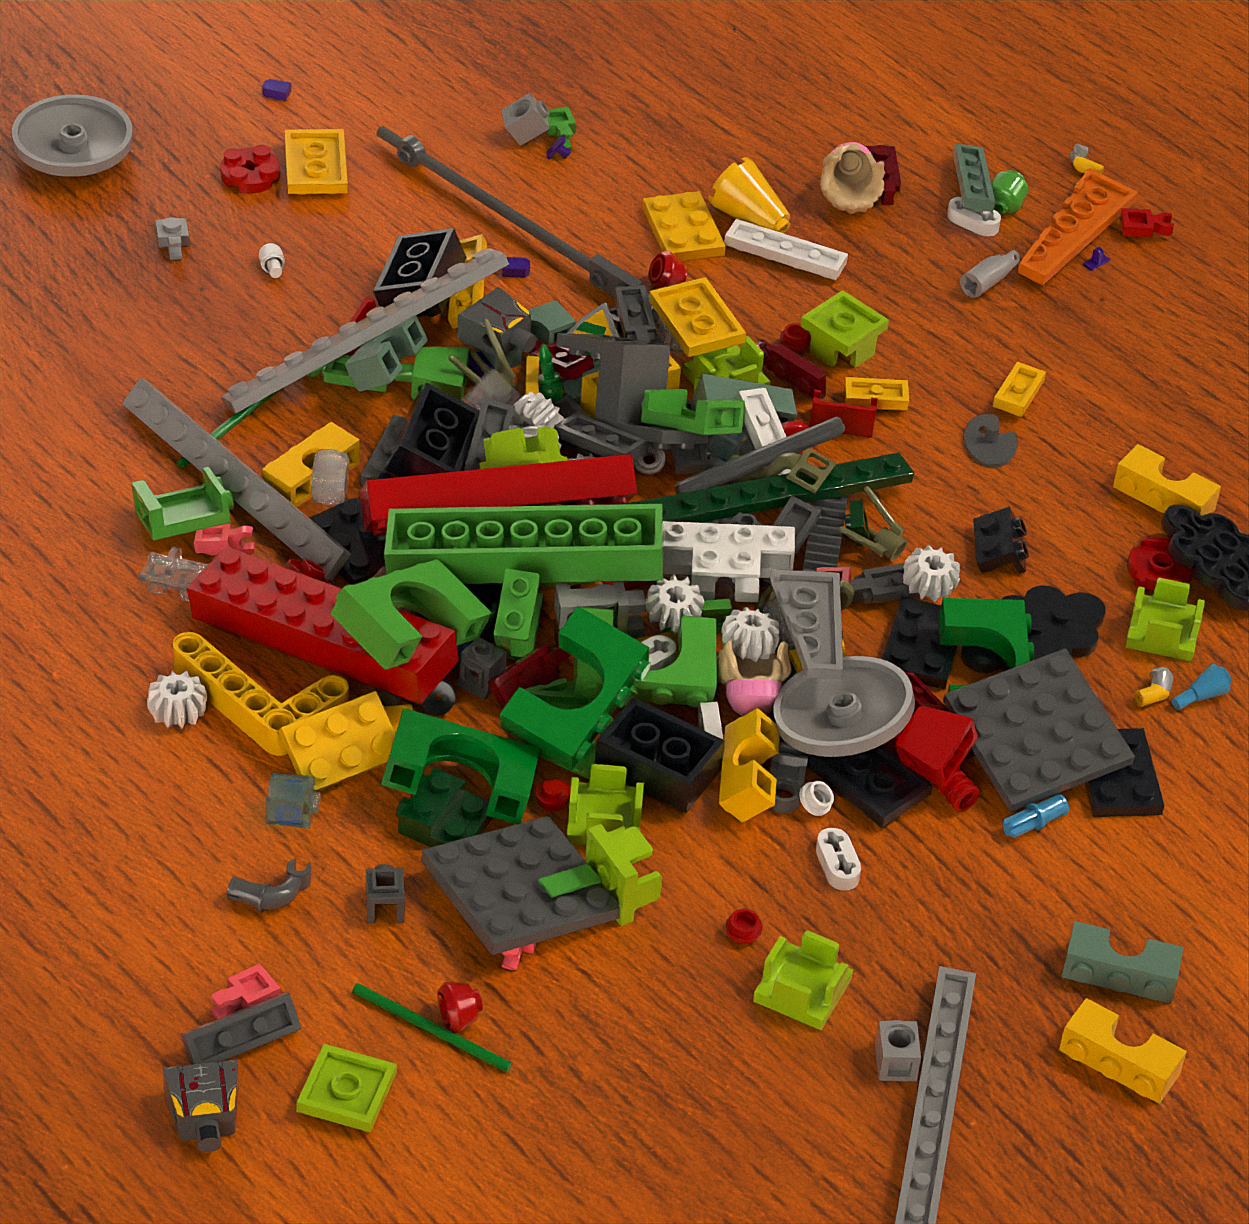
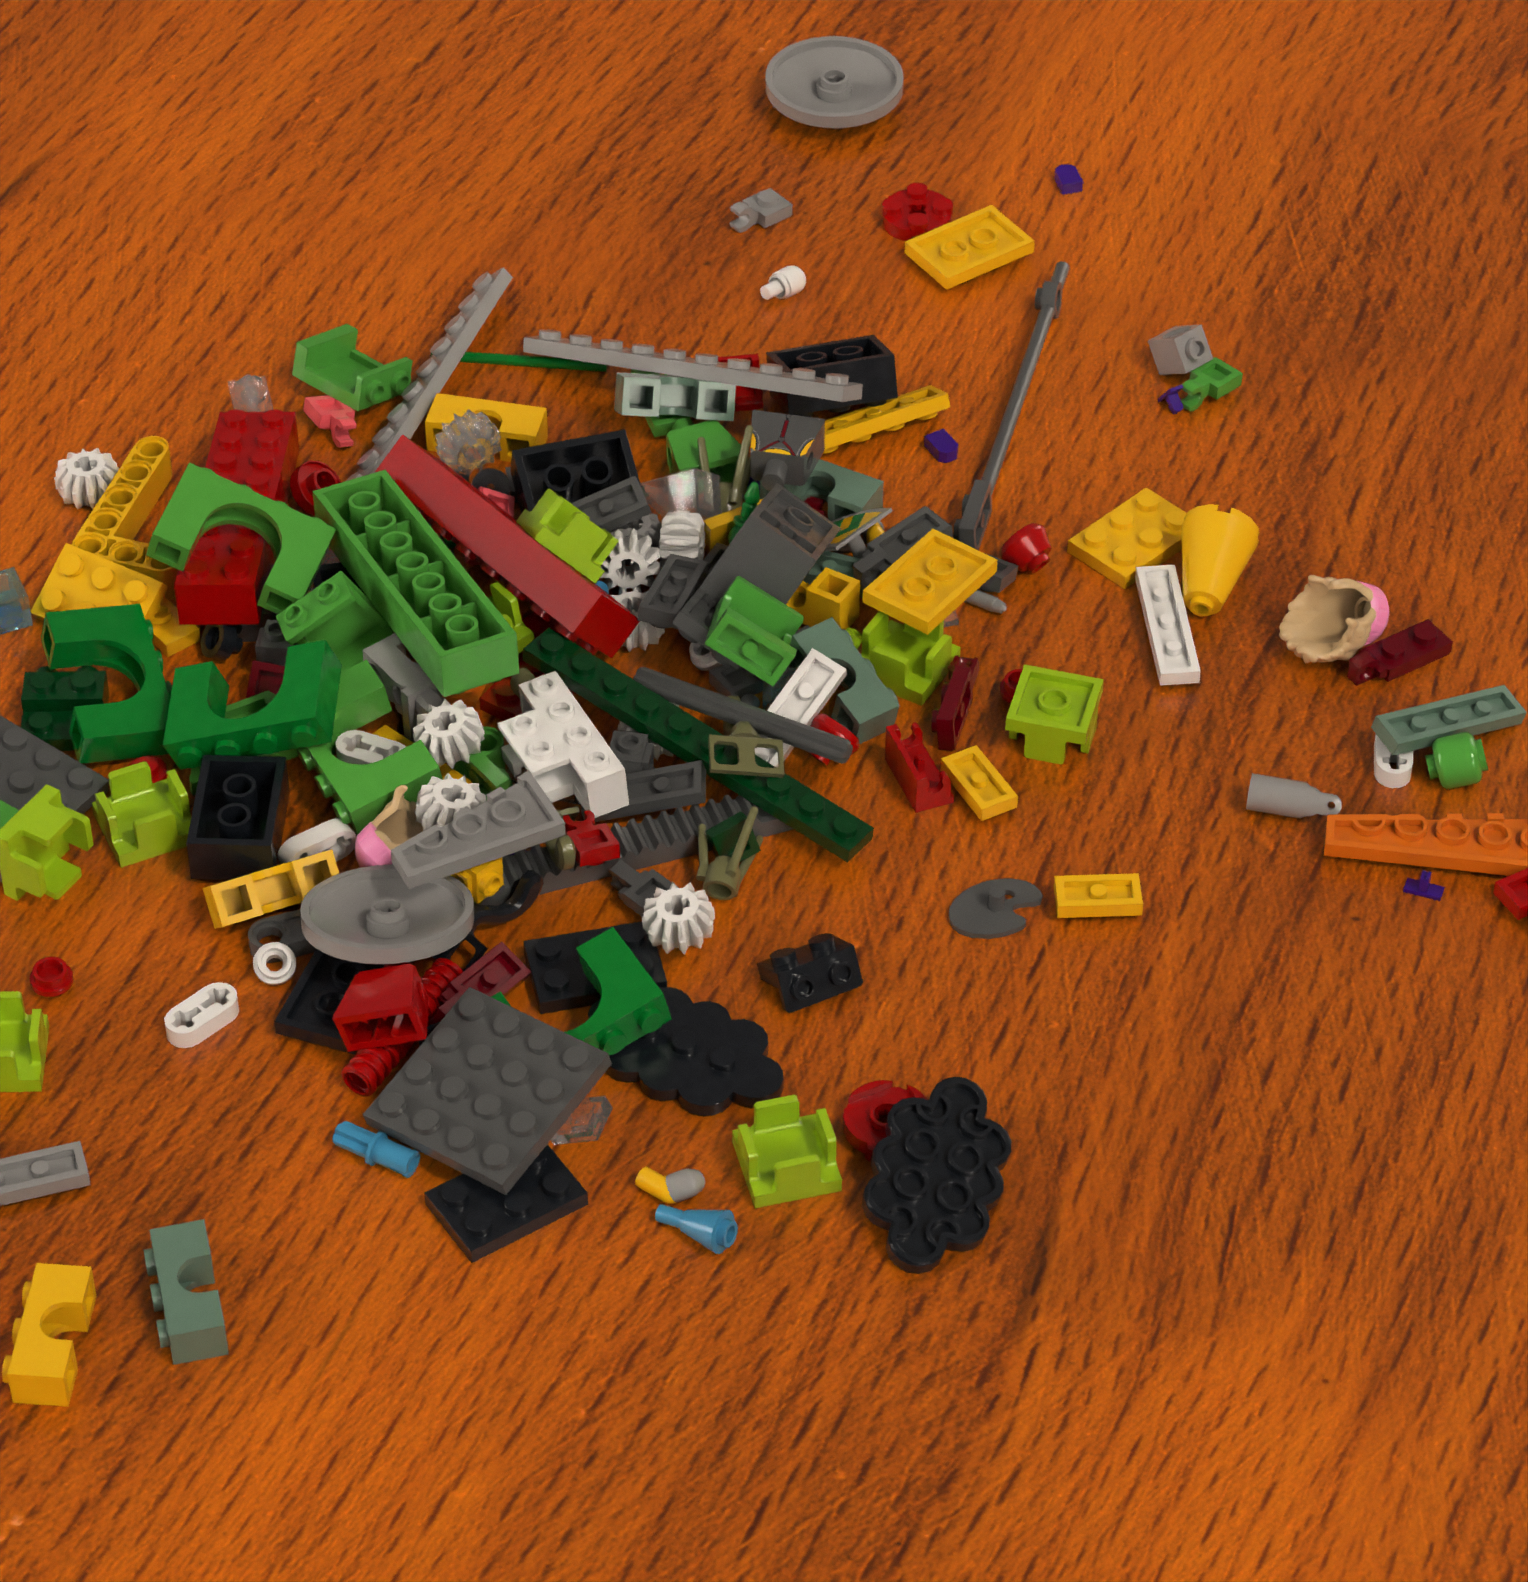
camera: 65 degrees right, 0 degrees up
(1141, 478) = (1031, 1052): yellow arch -> none

